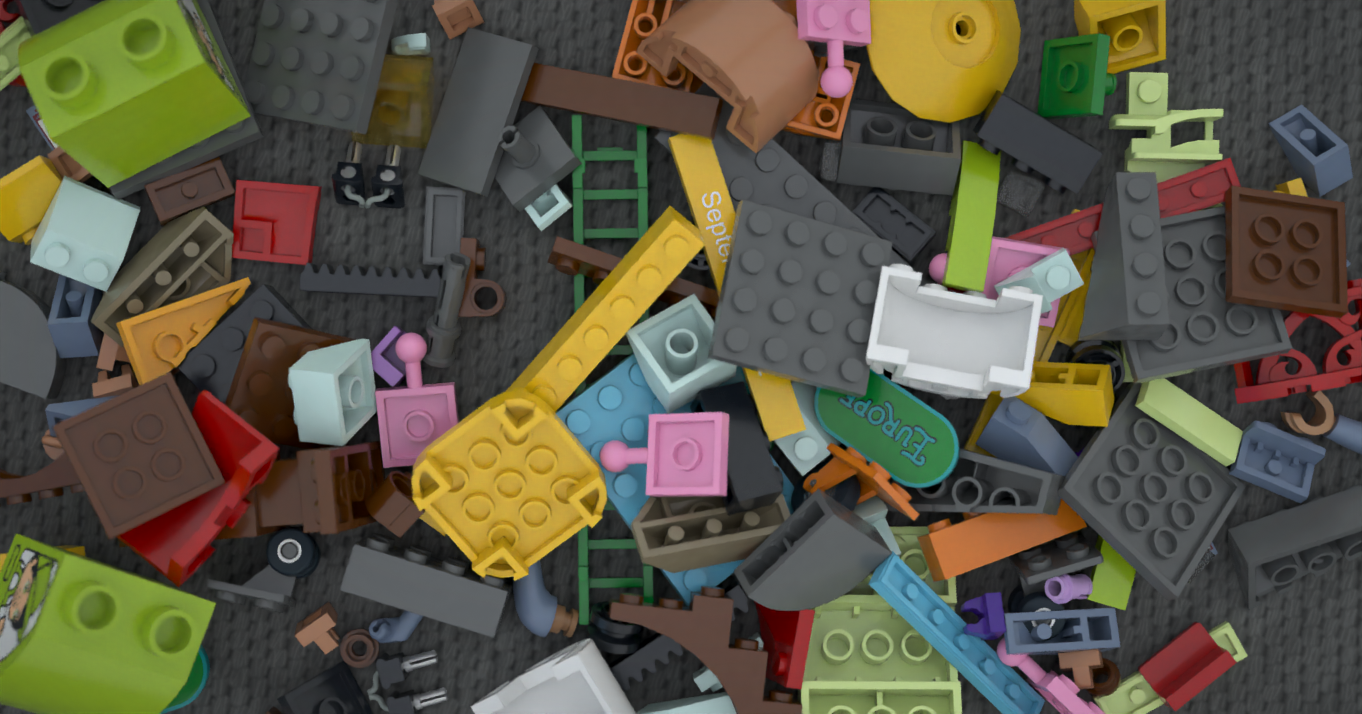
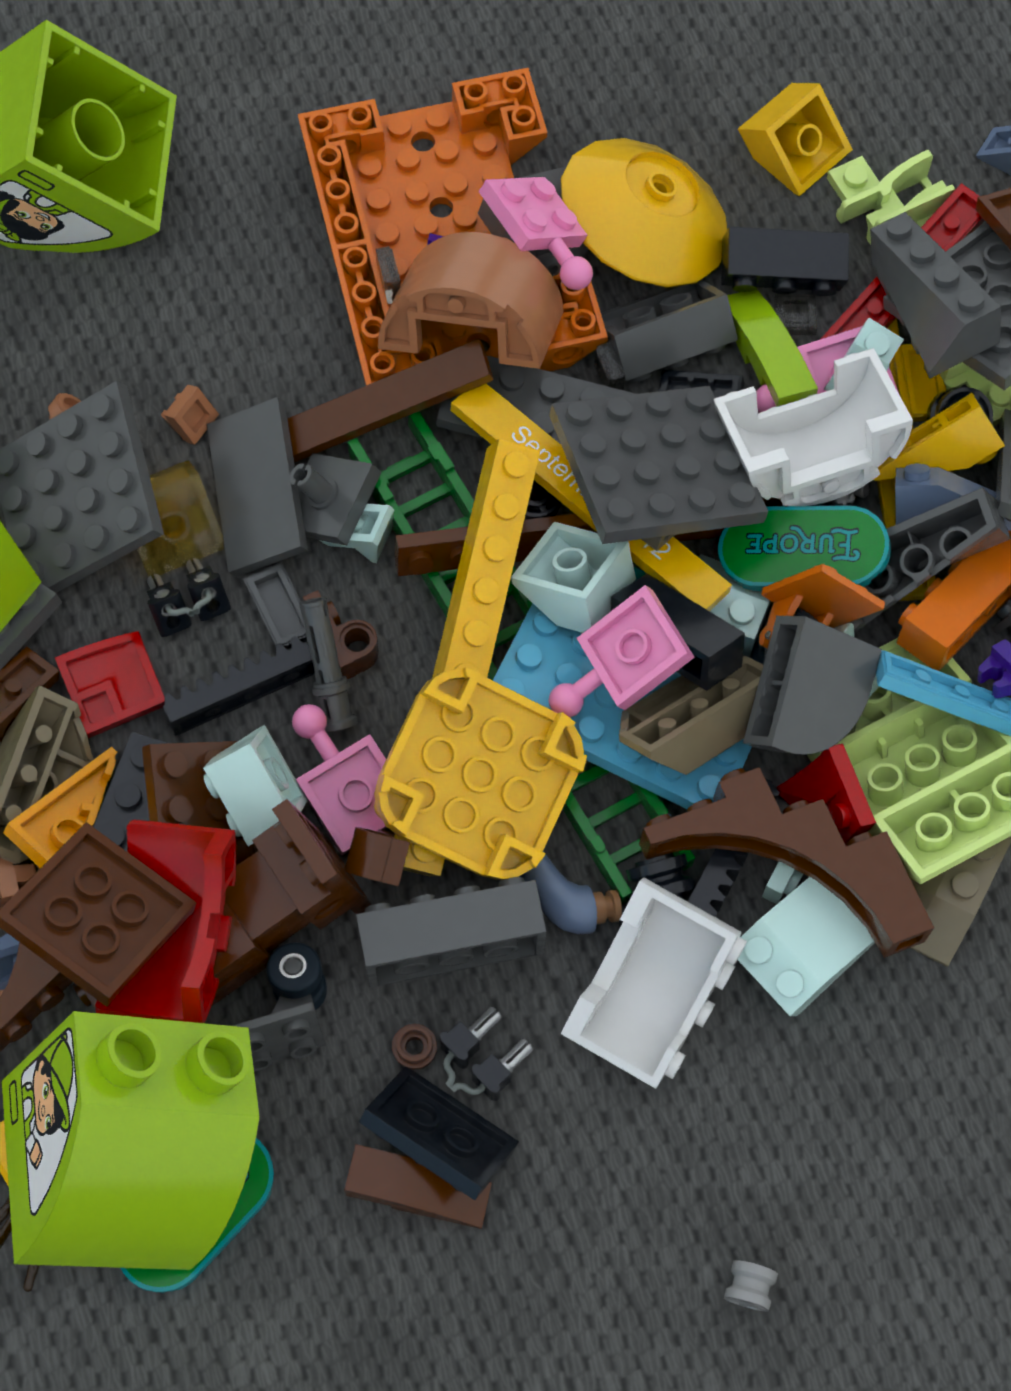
camera: 30 degrees left, 20 degrees down
(319, 628) = (364, 1044): nougat tile -> none
(385, 359) = (297, 751): medium lavender panel -> none
(394, 628) = (444, 1005): sand blue arm -> none
(413, 45) = (163, 457): light aqua tile -> none
(1075, 77) = (783, 186): green tile -> none

